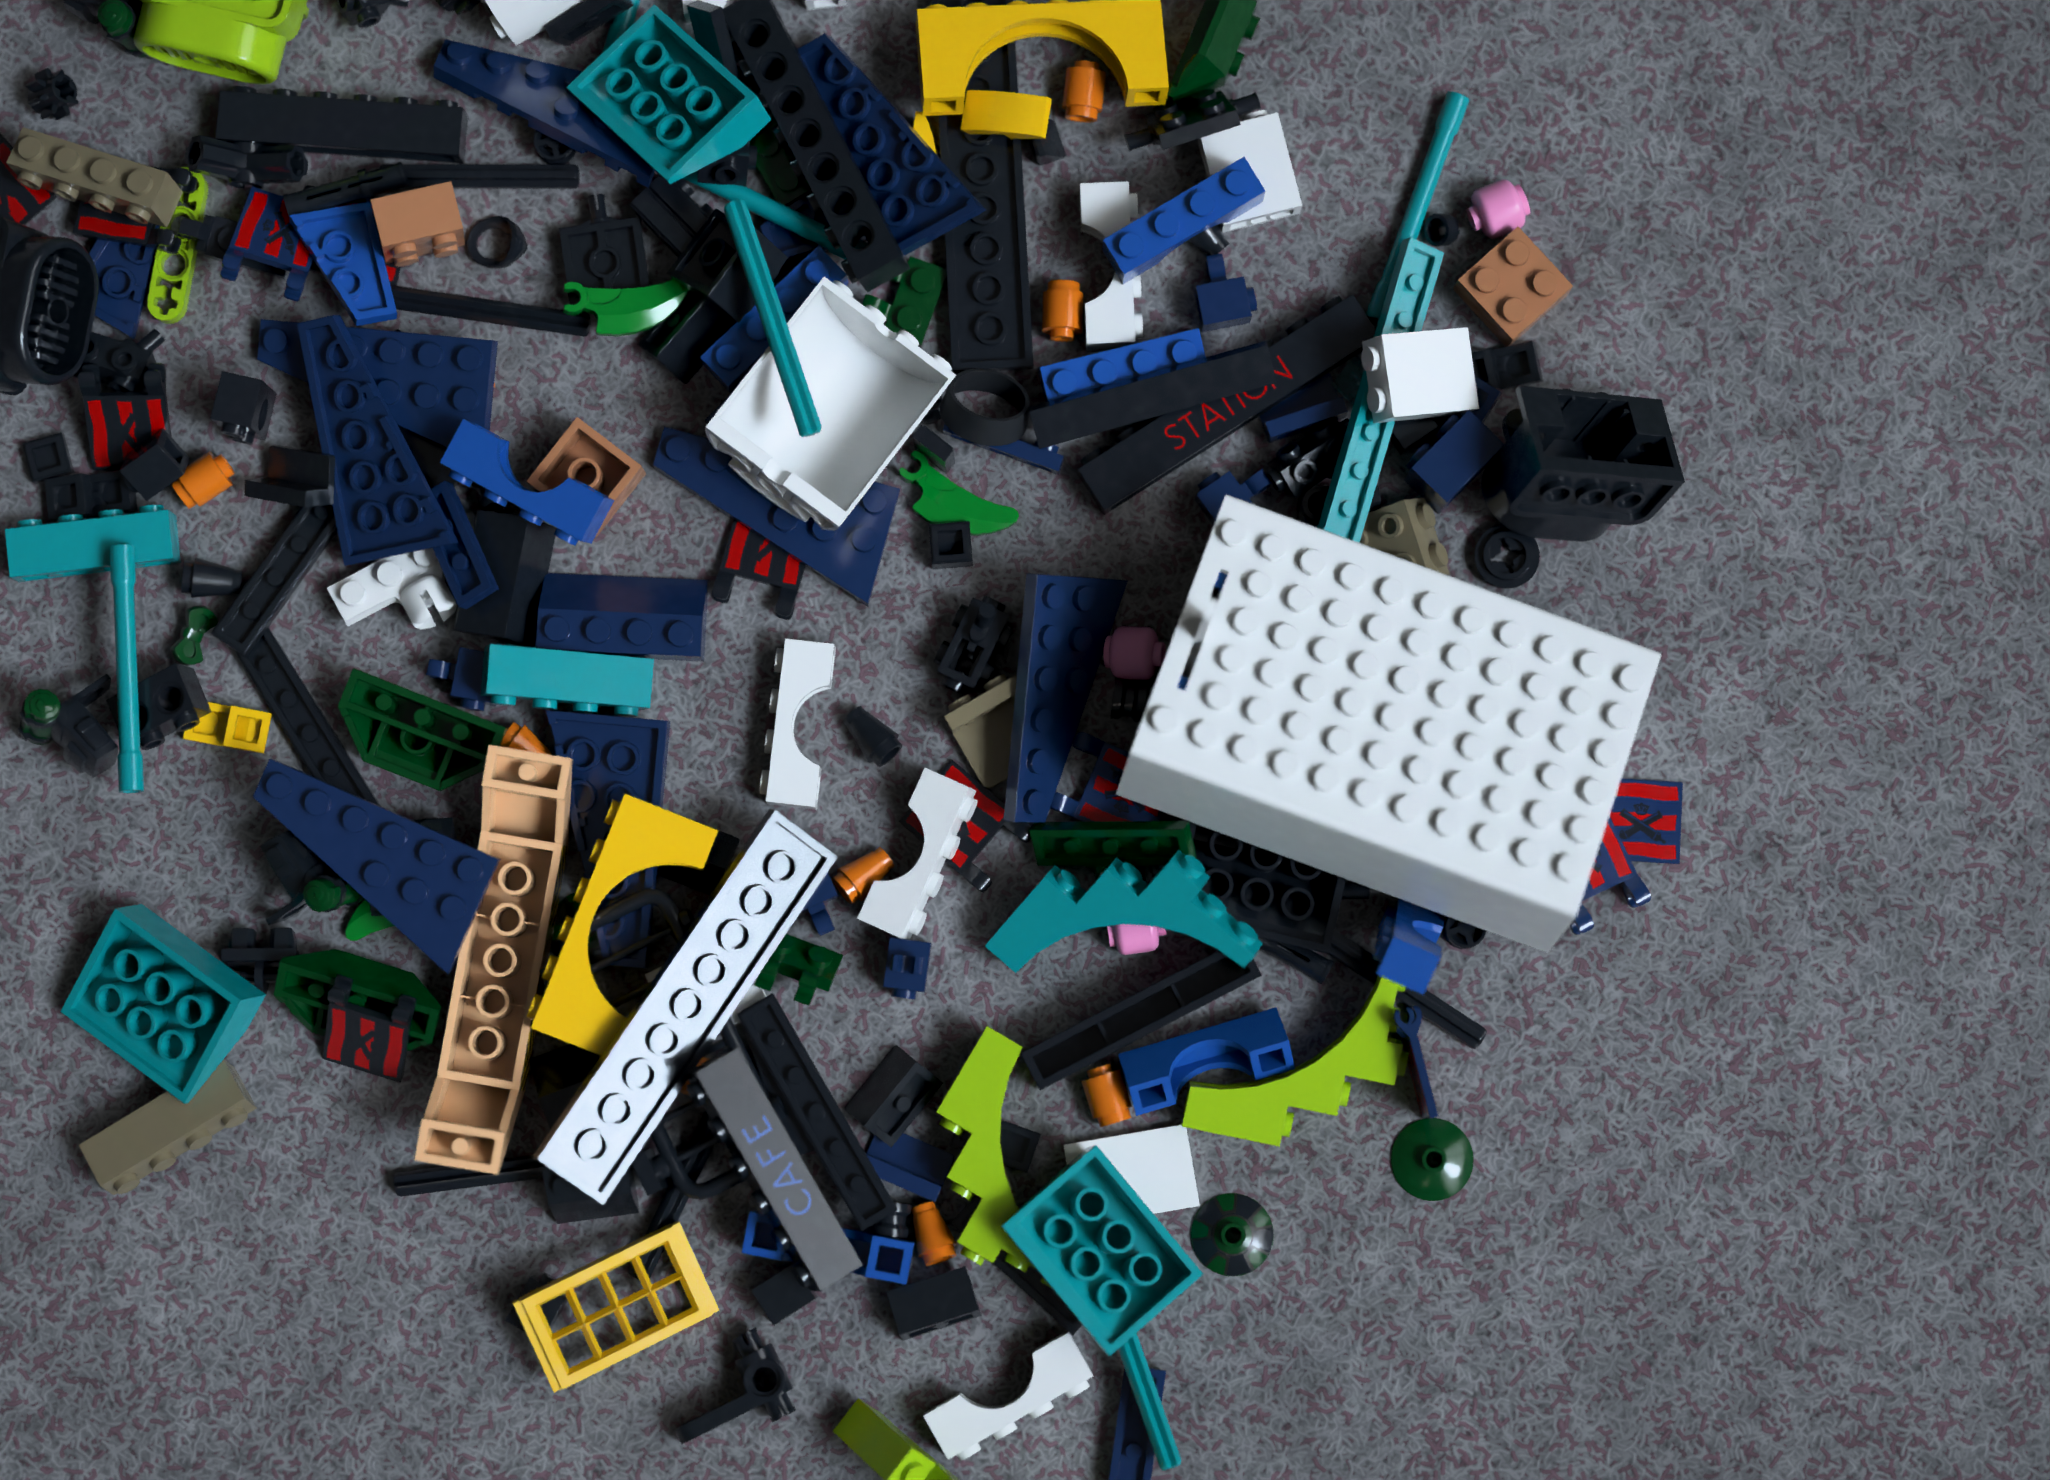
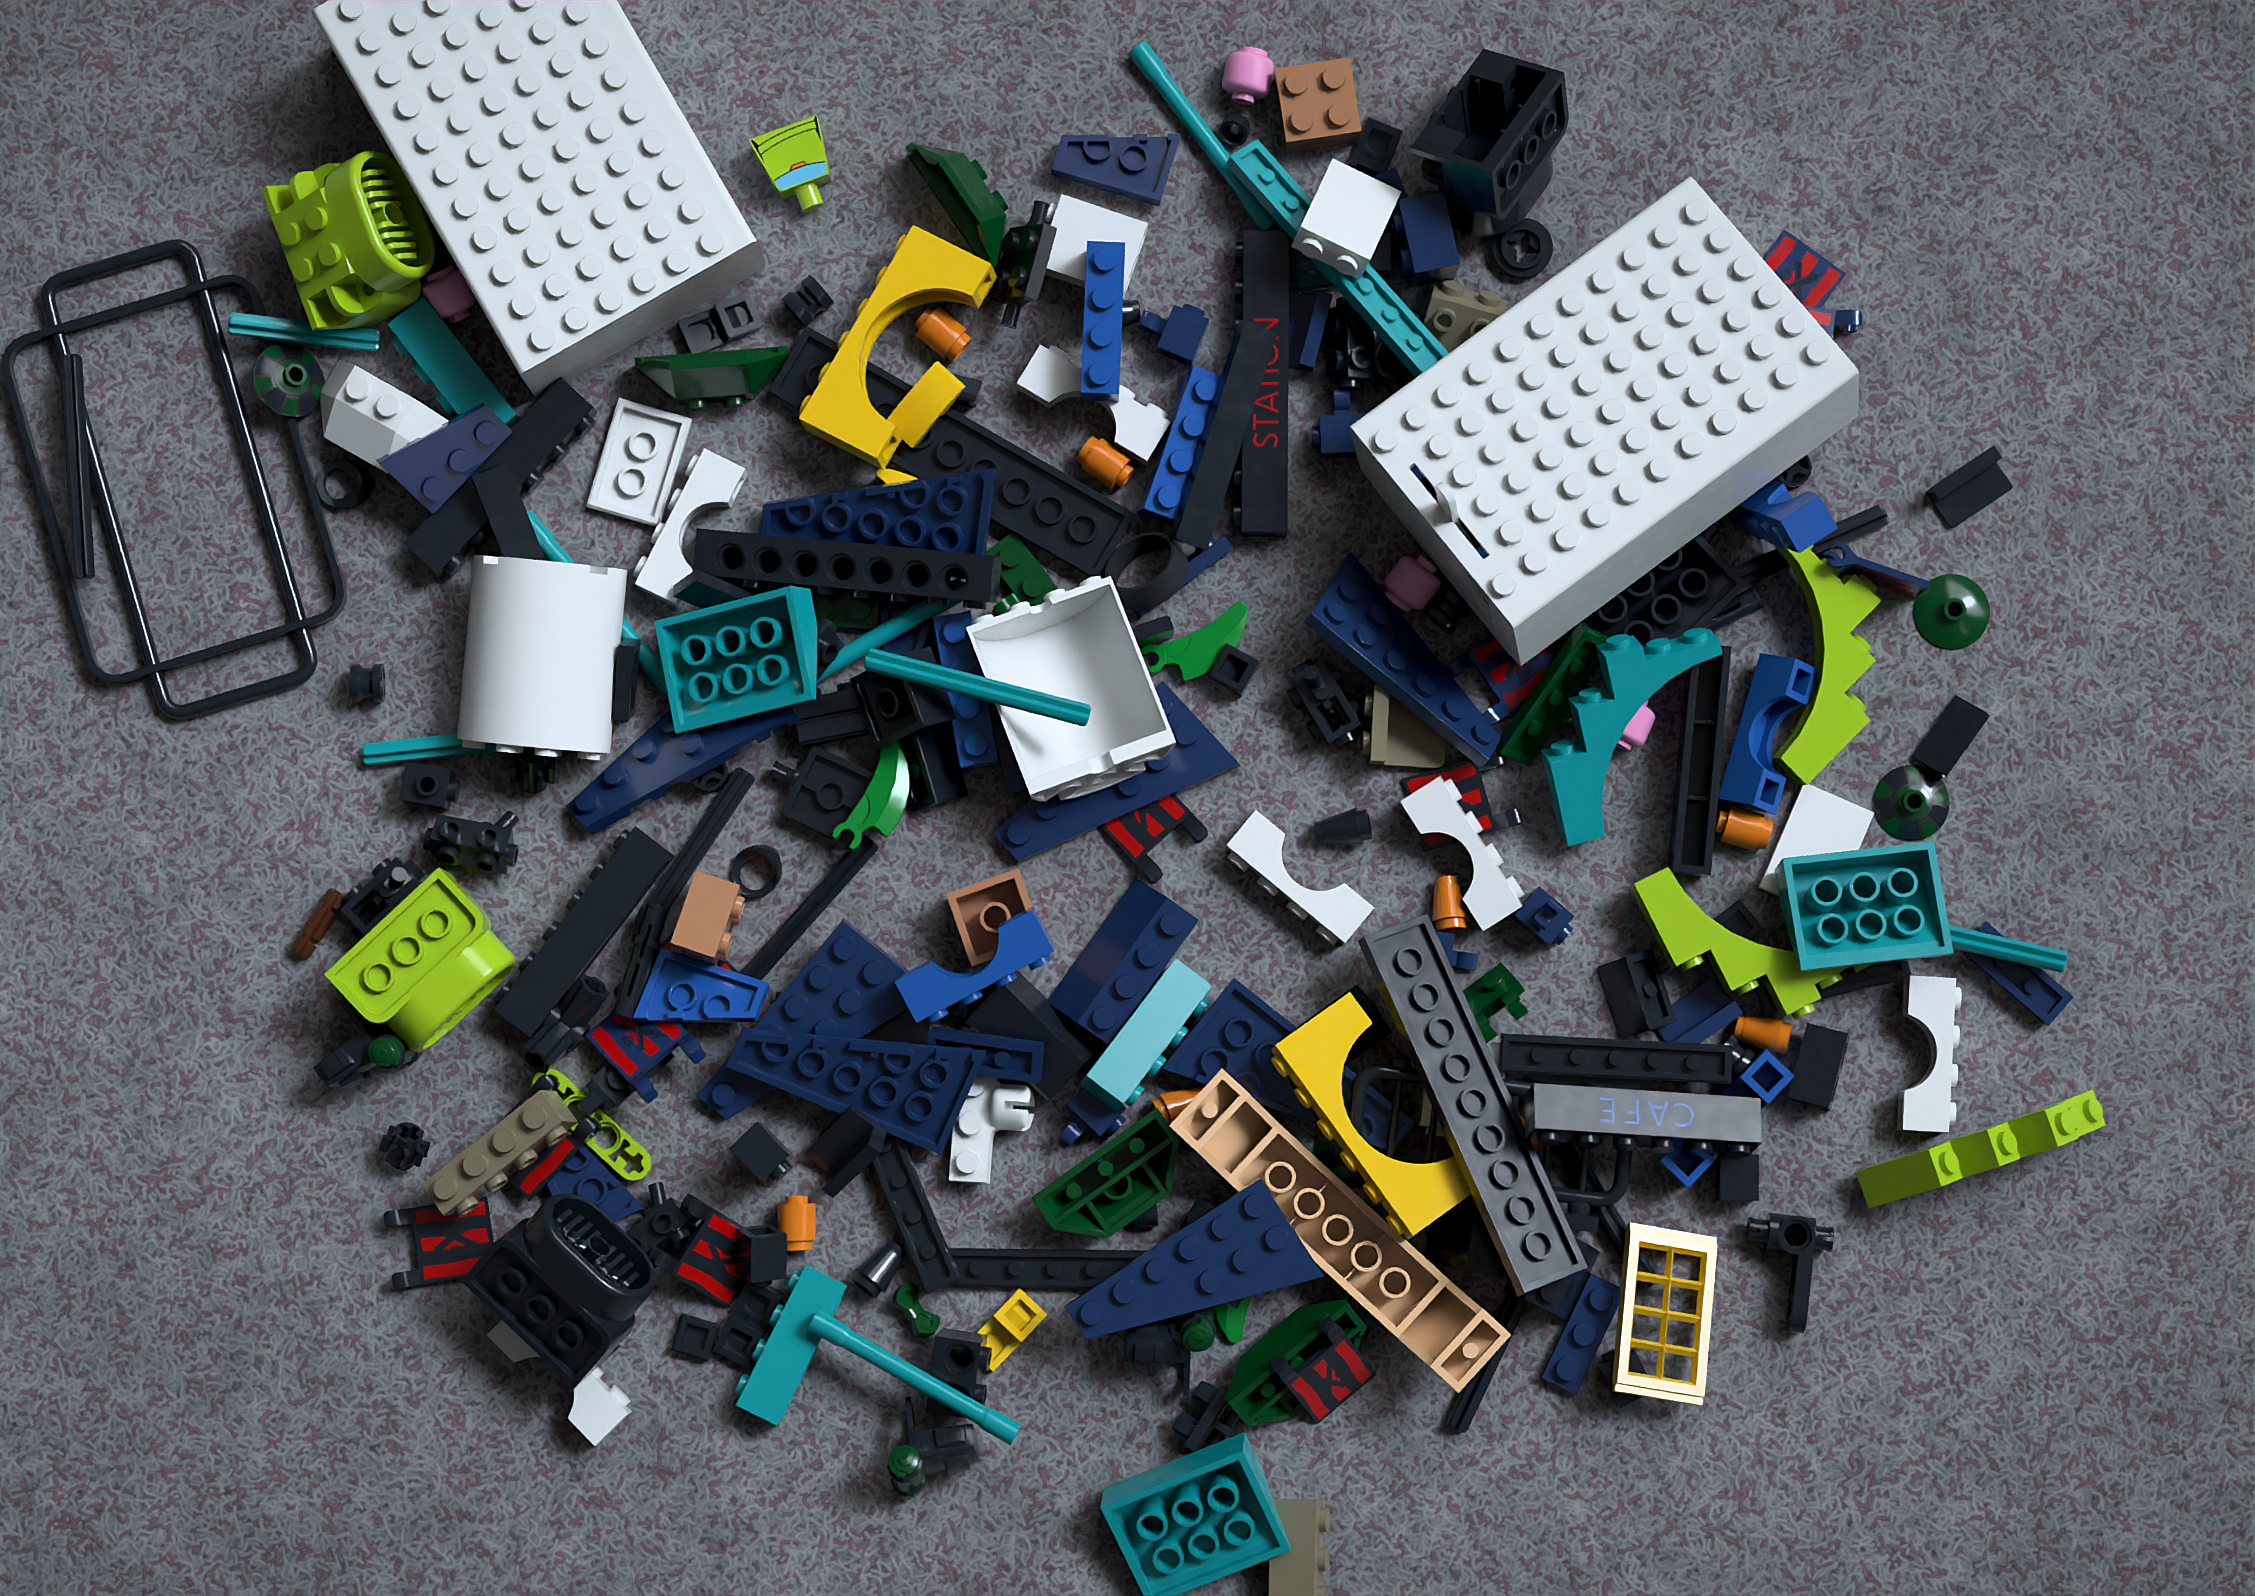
camera: 60 degrees left, 0 degrees up
(408, 788) = (1148, 1218): none -> black hinge
(553, 1244) = (1582, 1334): none -> dark blue plate
(1315, 1230) = (1950, 736): none -> black slope
(1340, 148) = (1120, 165): none -> dark blue wing
(1556, 1103) = (1970, 488): none -> black panel

